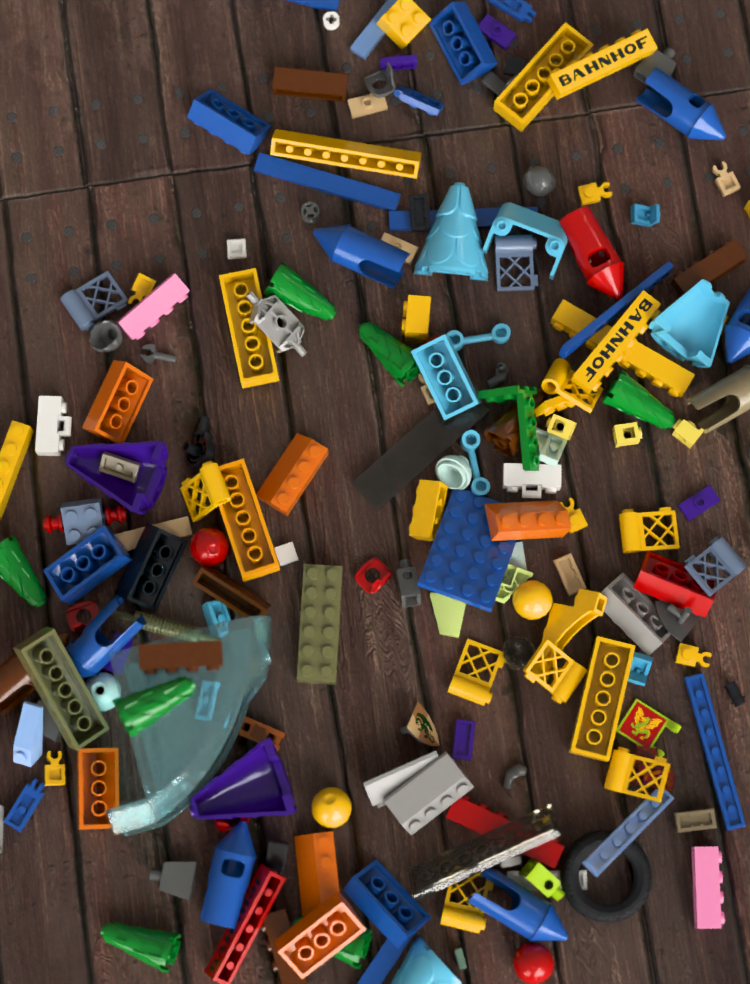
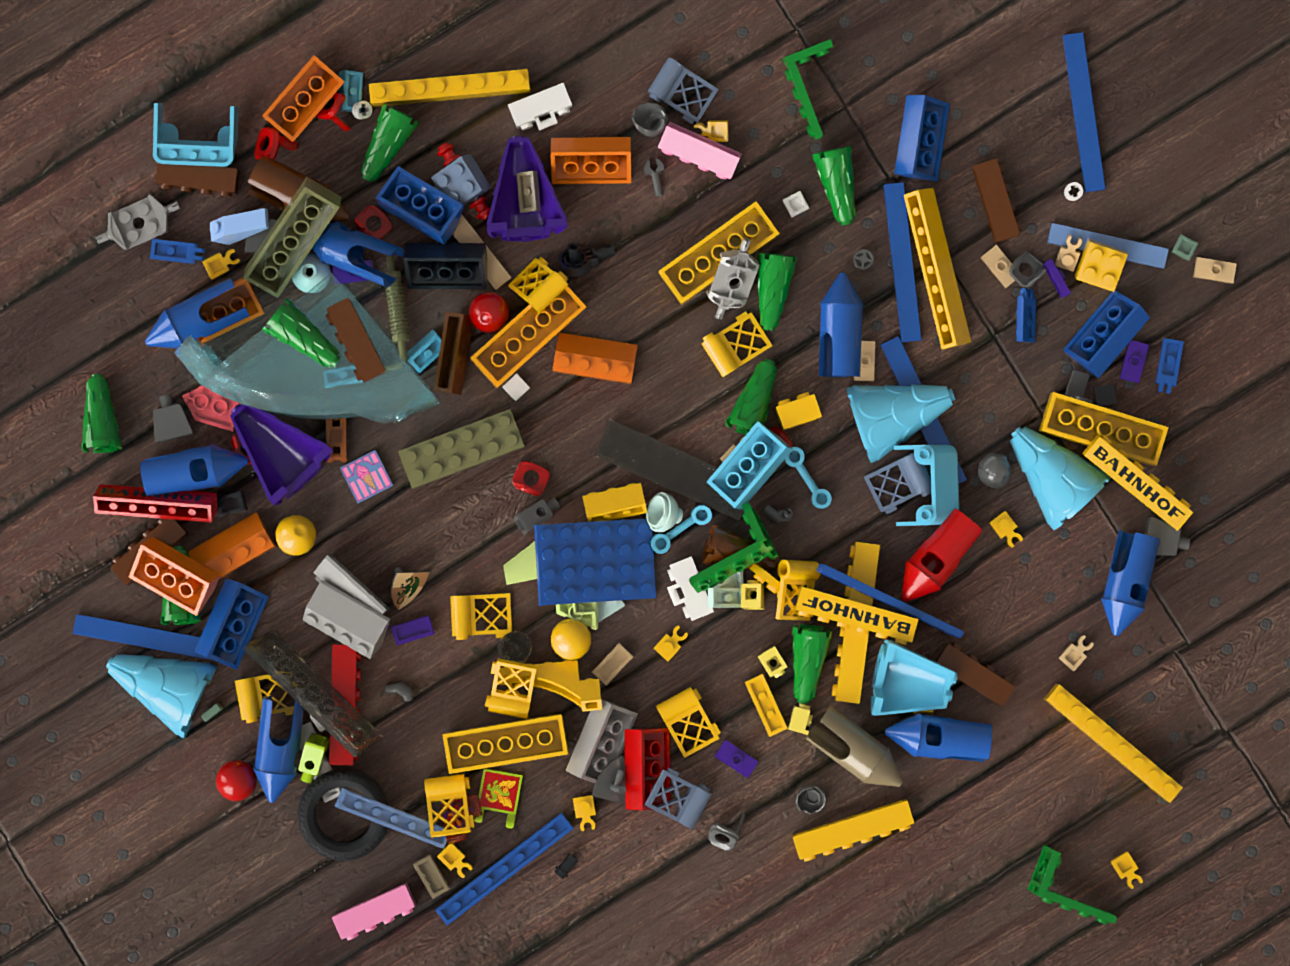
camera: 65 degrees right, 10 degrees up
(89, 818) = (186, 320): none -> blue piece
(141, 202) = (799, 91): none -> green bracket
(180, 835) = (210, 408): none -> coral tile
(231, 203) = (837, 178): none -> green cone
(306, 721) = (366, 476): none -> tile
(334, 363) = (724, 355): none -> yellow piece
(383, 46) = (1068, 256): none -> tan plate
(419, 213) = (907, 367): black plate -> none
(527, 520) = (645, 601): orange slope -> none
(567, 132) = (1056, 475): none -> medium azure cone
(640, 668) = (549, 767): dark azure bracket -> none
(644, 215) = (1003, 588): dark azure bracket -> none
(661, 457) = (766, 705): none -> yellow plate
(686, 793) = (452, 857): none -> yellow plate

